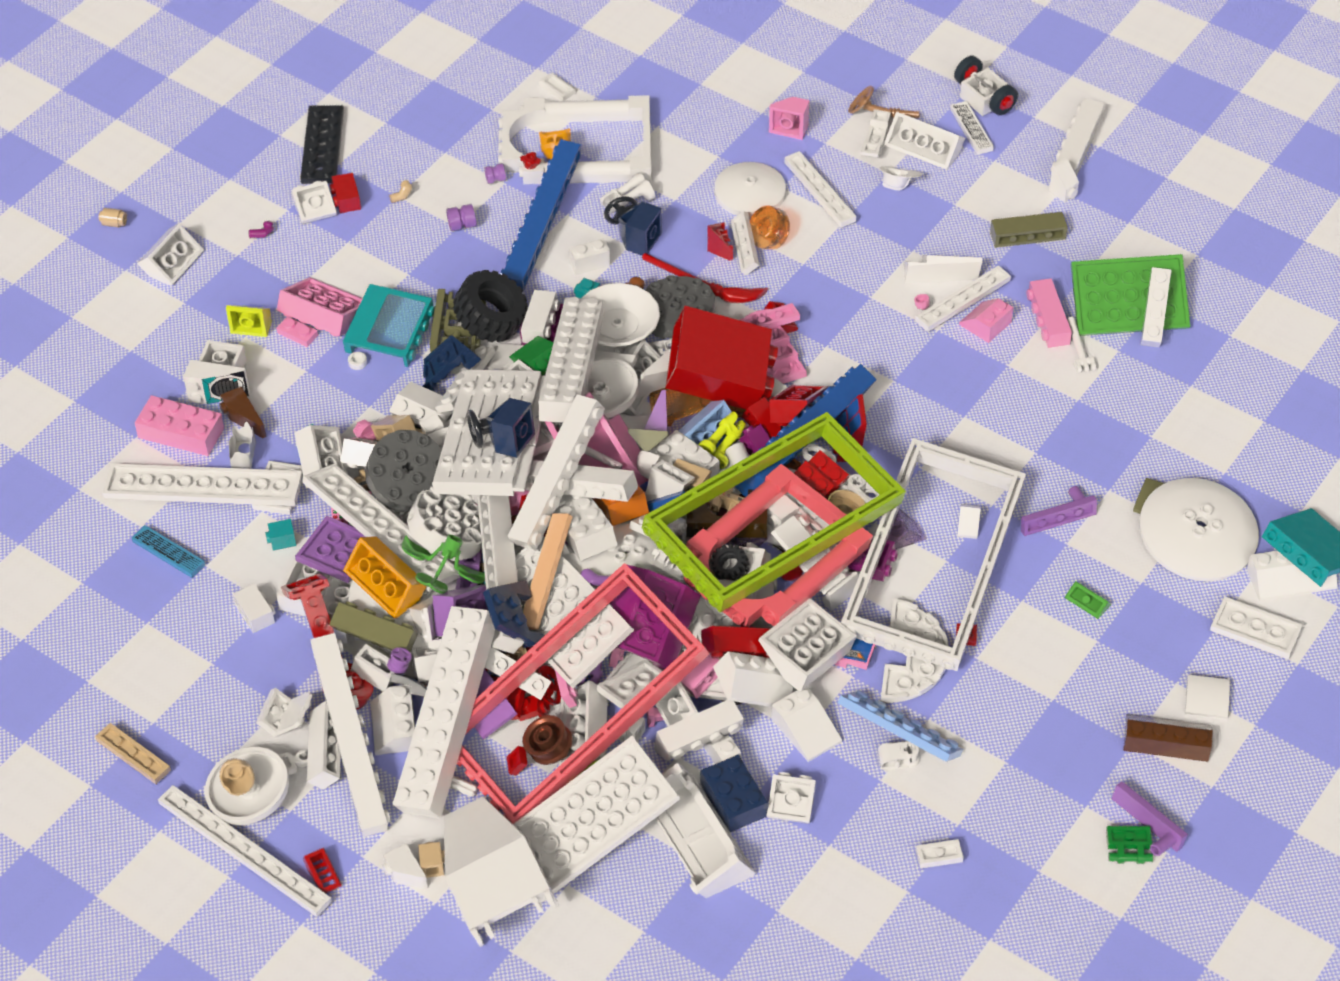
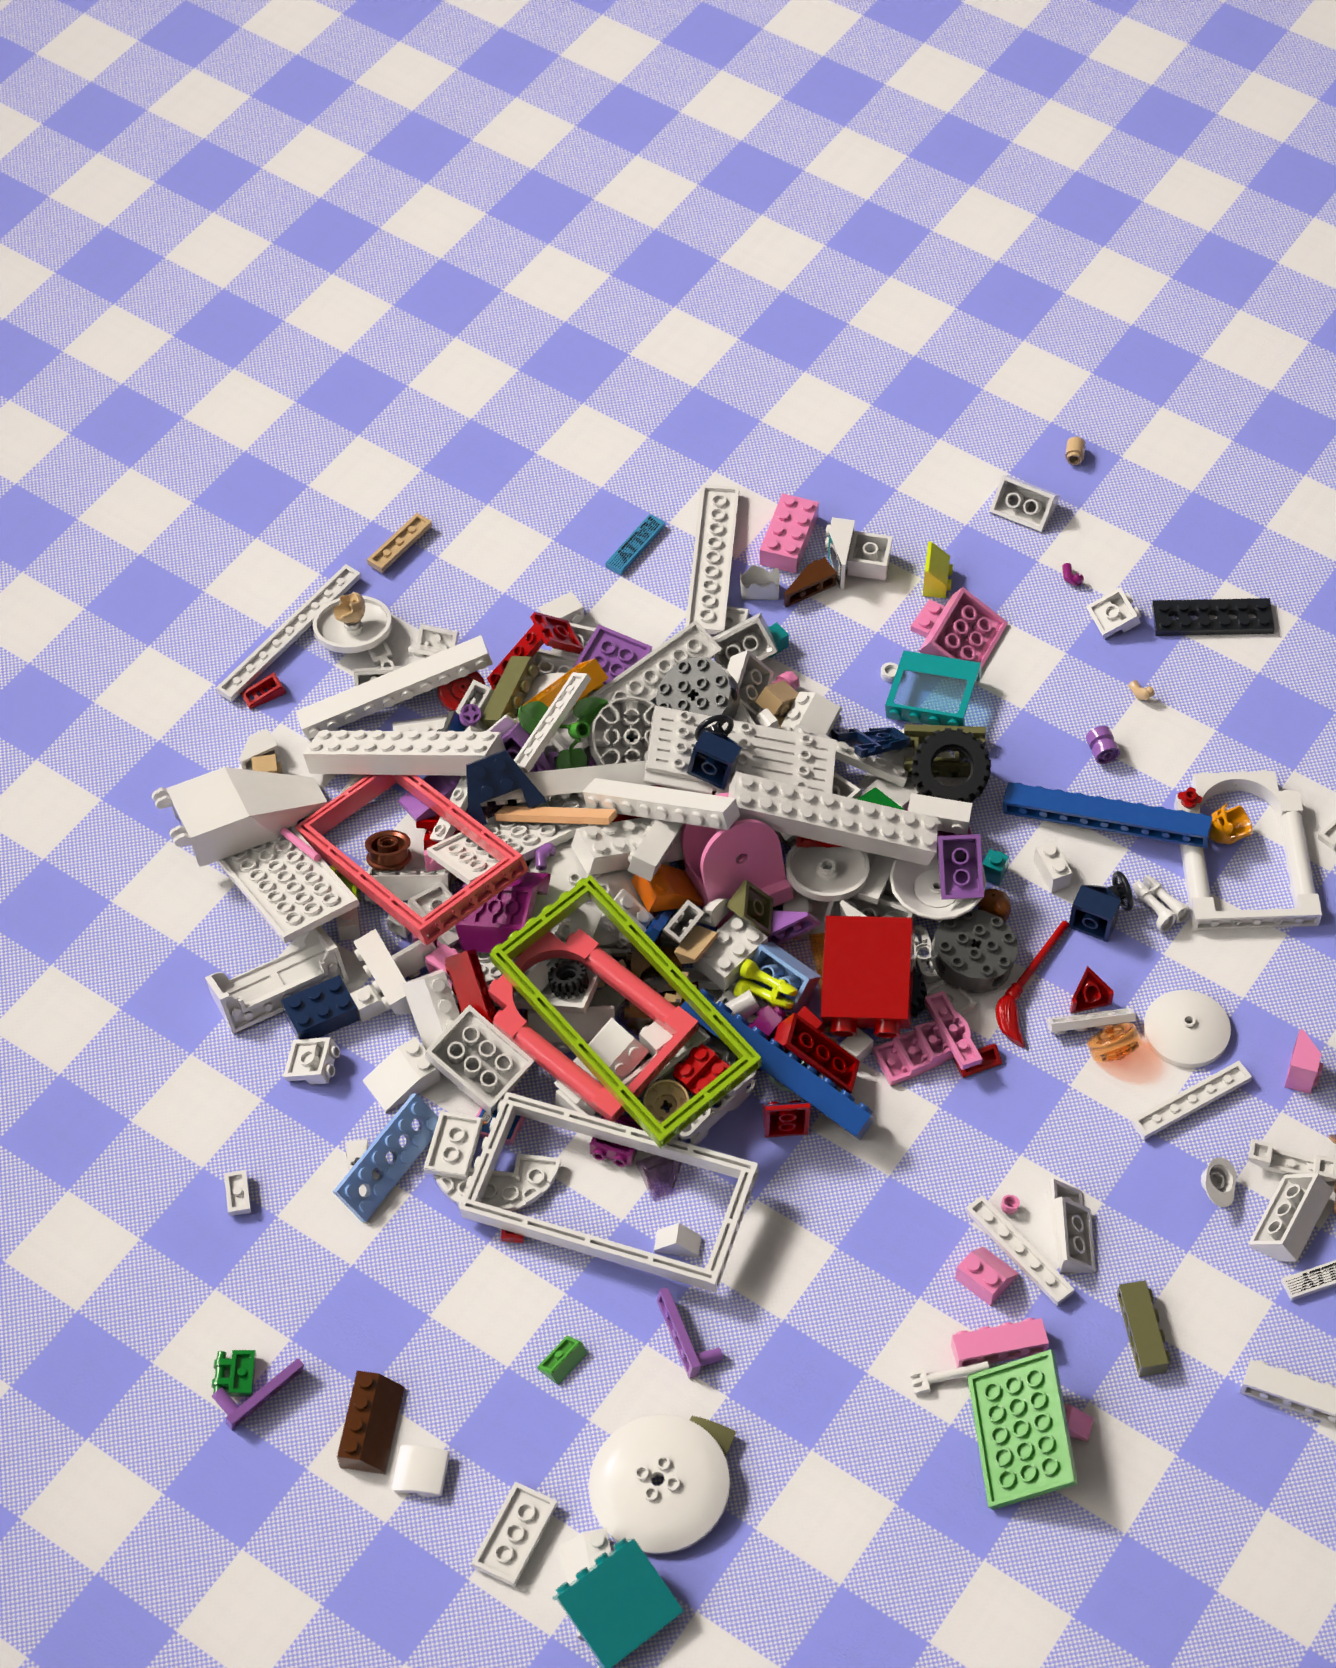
camera: 90 degrees right, 5 degrees up
(281, 534) = (651, 626): teal brick -> none
(345, 192) = (1133, 641): red brick -> none
(438, 564) = (551, 721): none -> white plate
(495, 173) = (1179, 774): medium lavender wheel -> none
(516, 760) = (368, 831): red plate -> none
(540, 811) = (300, 844): none -> bright pink bar
(616, 291) = (960, 866): none -> medium lavender slope
(885, 675) = (453, 1145): none -> white tile
(1063, 181) = (1226, 1371): white slope -> none
(1155, 307) = (997, 1453): white brick -> none

